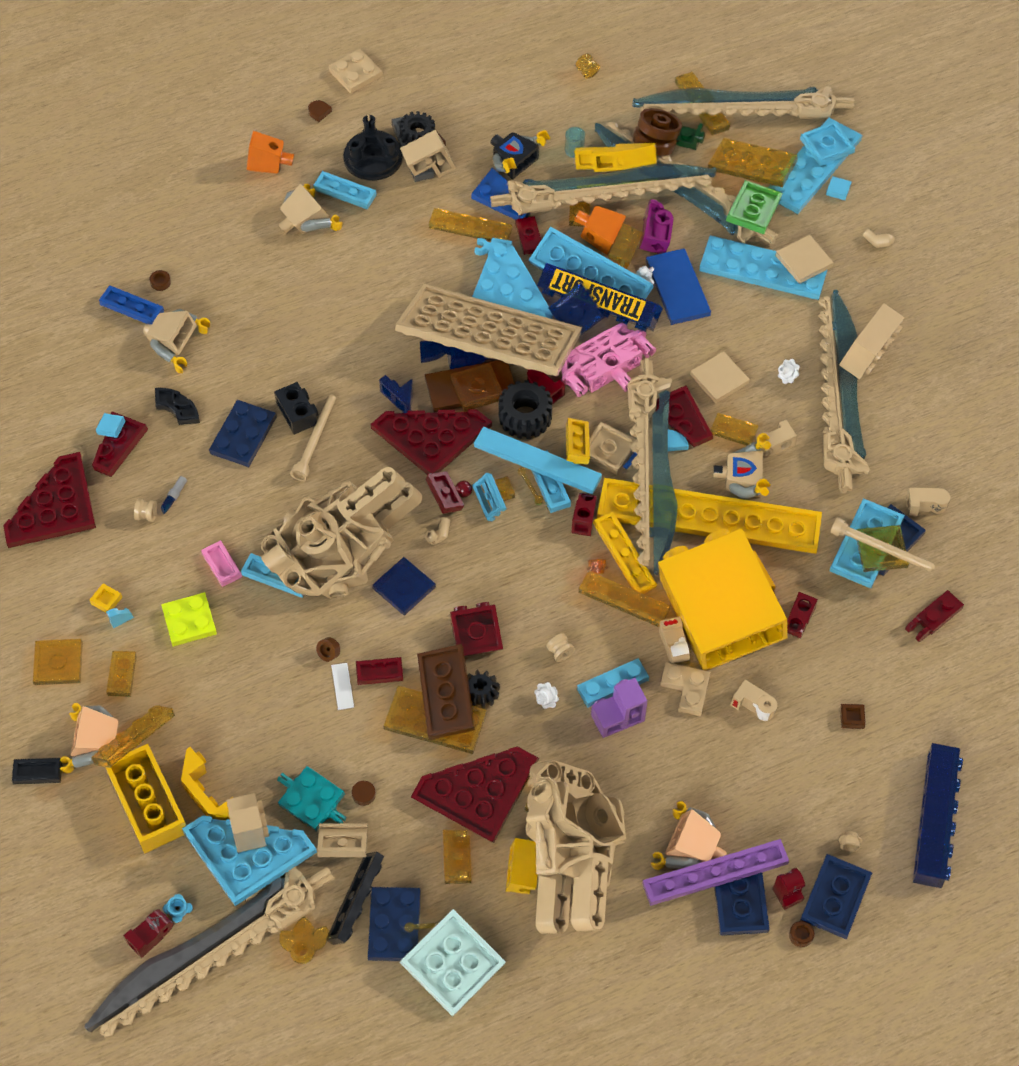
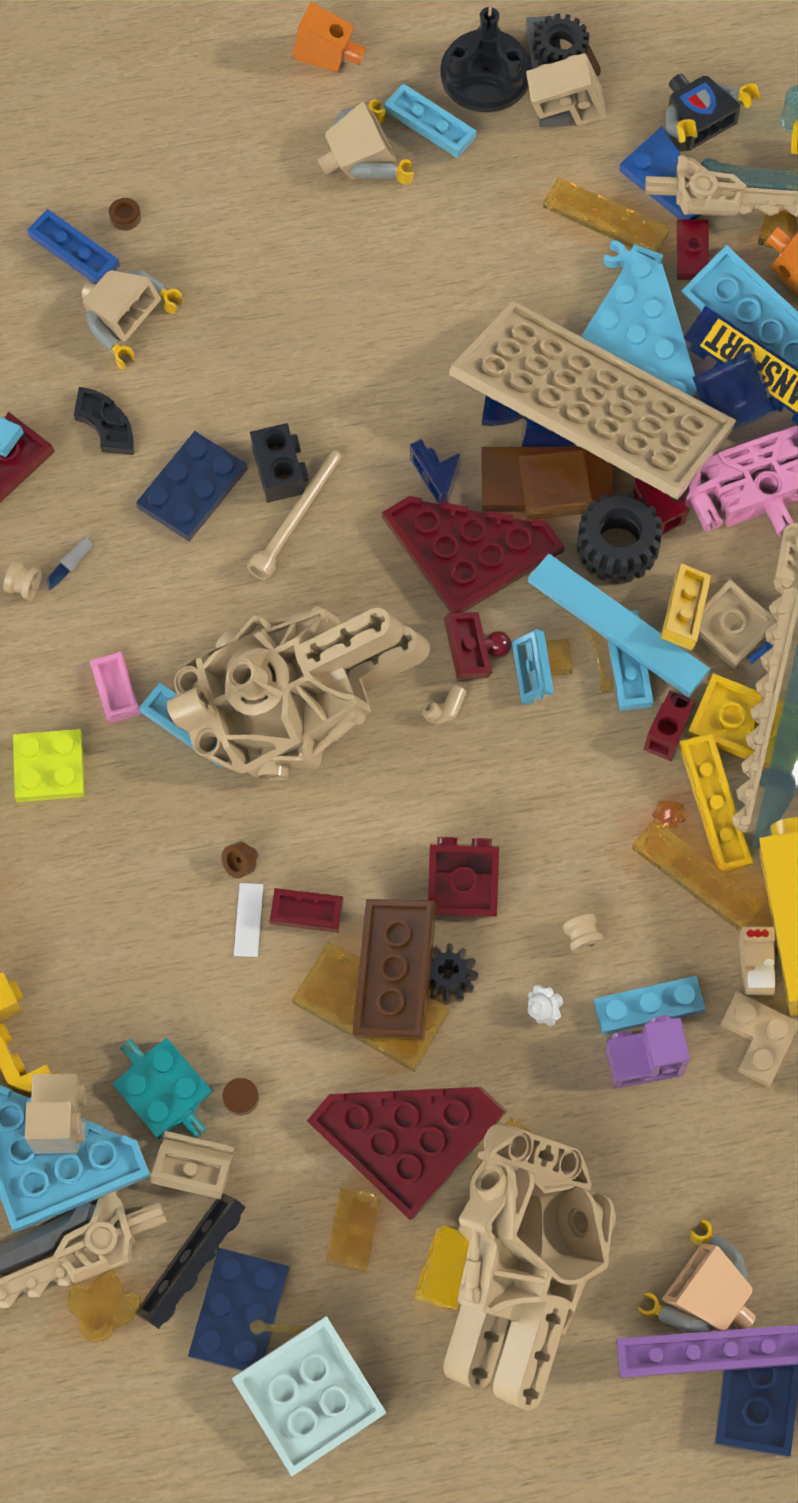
camera: 15 degrees right, 10 degrees up
(404, 586) = (373, 781): clear blue tile -> none

